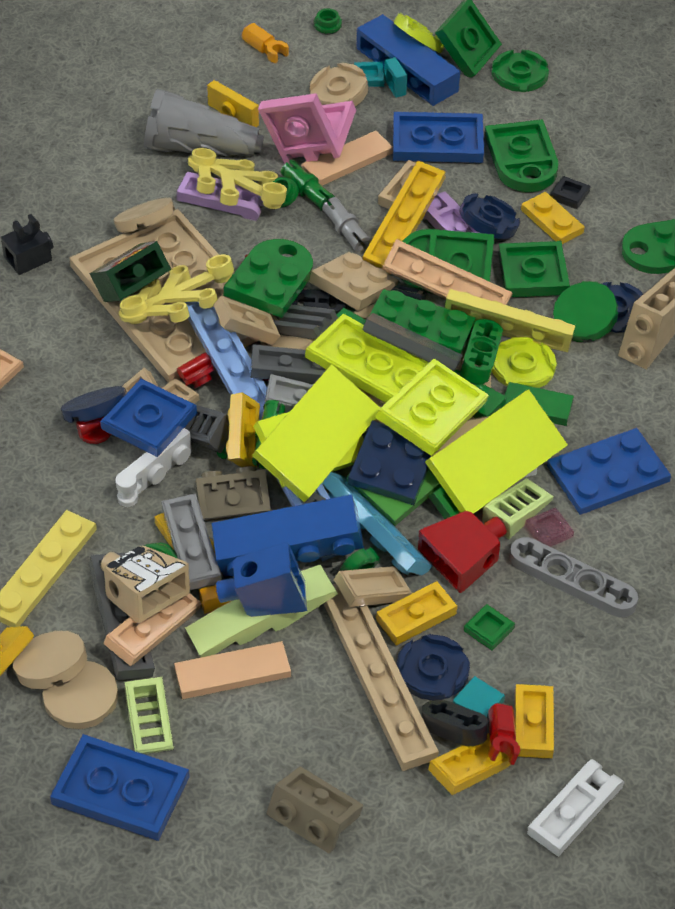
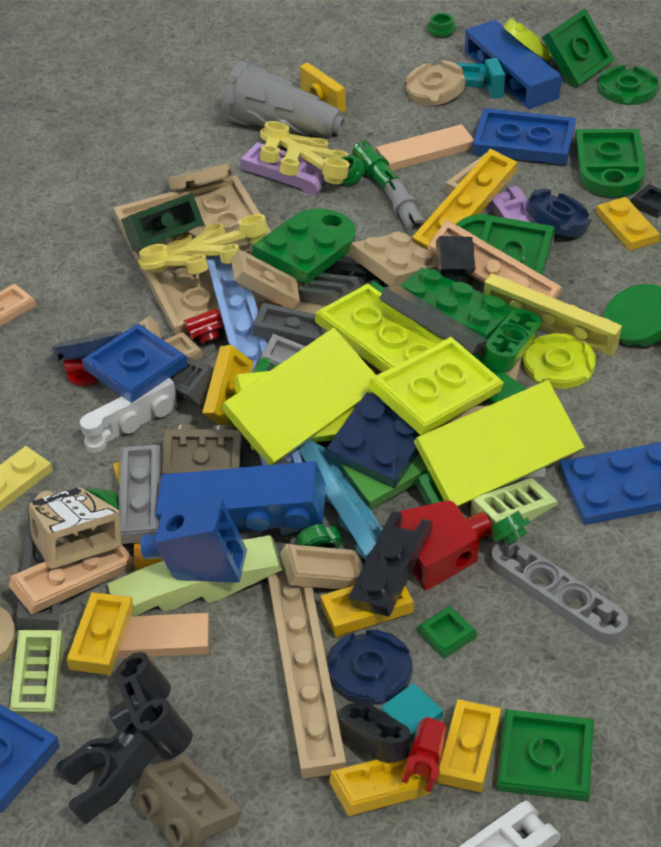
camera: 15 degrees right, 5 degrees down
(27, 246) = (75, 192): black brick -> none
(198, 674) = (100, 633): none -> yellow plate
(264, 42) = (372, 38): light orange bar -> none
(265, 758) = (144, 728): none -> black piece
(314, 129) = (398, 114): bright pink bracket -> none
(412, 273) = (455, 254): none -> black tile
(431, 578) = (389, 566): none -> black hinge
(524, 528) = (510, 528): none -> green plate
(533, 268) = (593, 268): green plate -> none
(549, 527) = (546, 534): clear pink tile -> none
(555, 404) = (580, 406): green tile -> none
(596, 719) = (546, 755): none -> green tile

